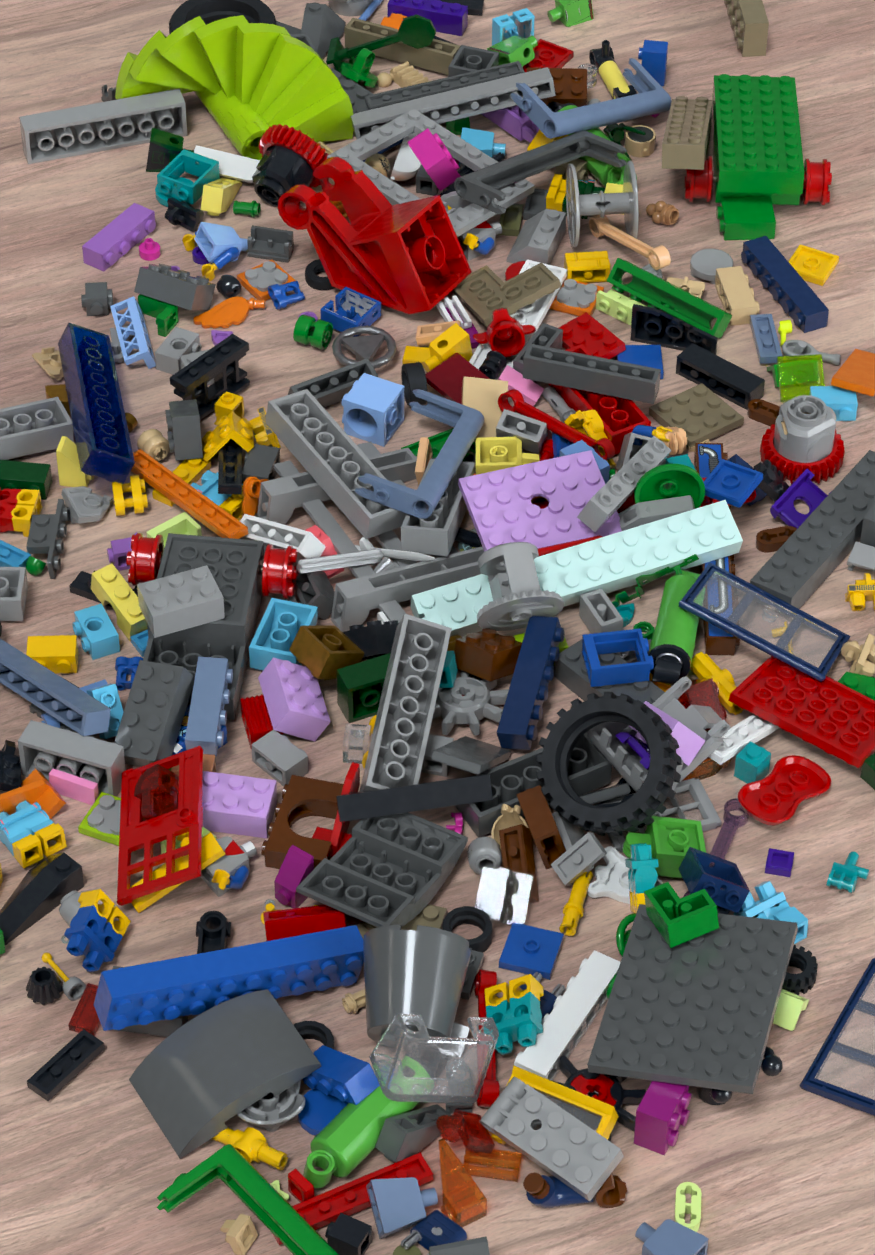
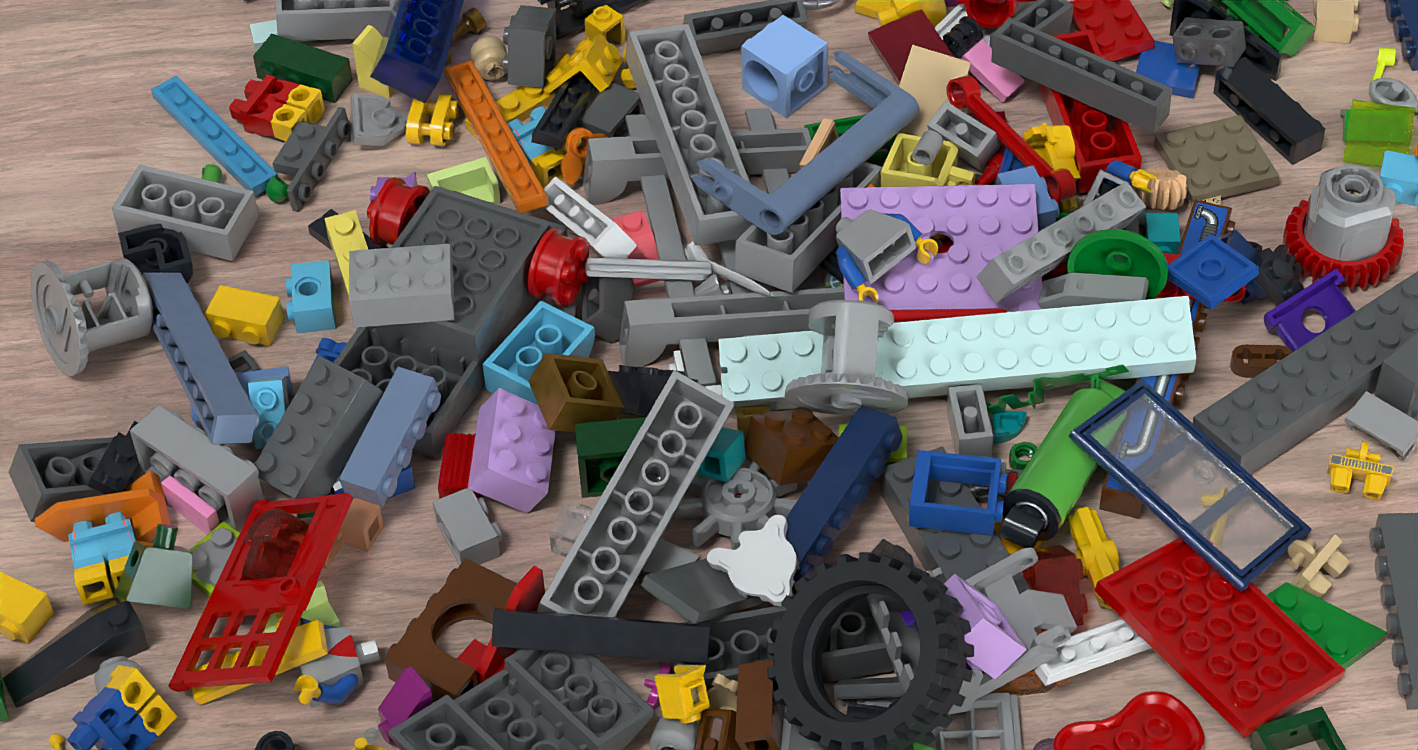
camera: 20 degrees right, 5 degrees up
(78, 829) = (158, 571): none -> torso
(238, 804) = (379, 580): lavender brick -> none
(413, 378) = (852, 36): black tyre -> none
(485, 820) = (683, 693): none -> yellow window
(501, 509) = (875, 245): none -> light grey torso
(501, 731) = (761, 564): none -> white tile
(503, 442) = (927, 147): none -> light grey hinge
(557, 403) = (1035, 103): light grey axle -> none
(665, 337) = (1209, 42): none -> flat silver brick
(752, 763) = (1098, 691): teal brick -> none
(763, 411) = (1307, 169): reddish brown beam -> none
(765, 338) = (1352, 68): sand blue plate -> none

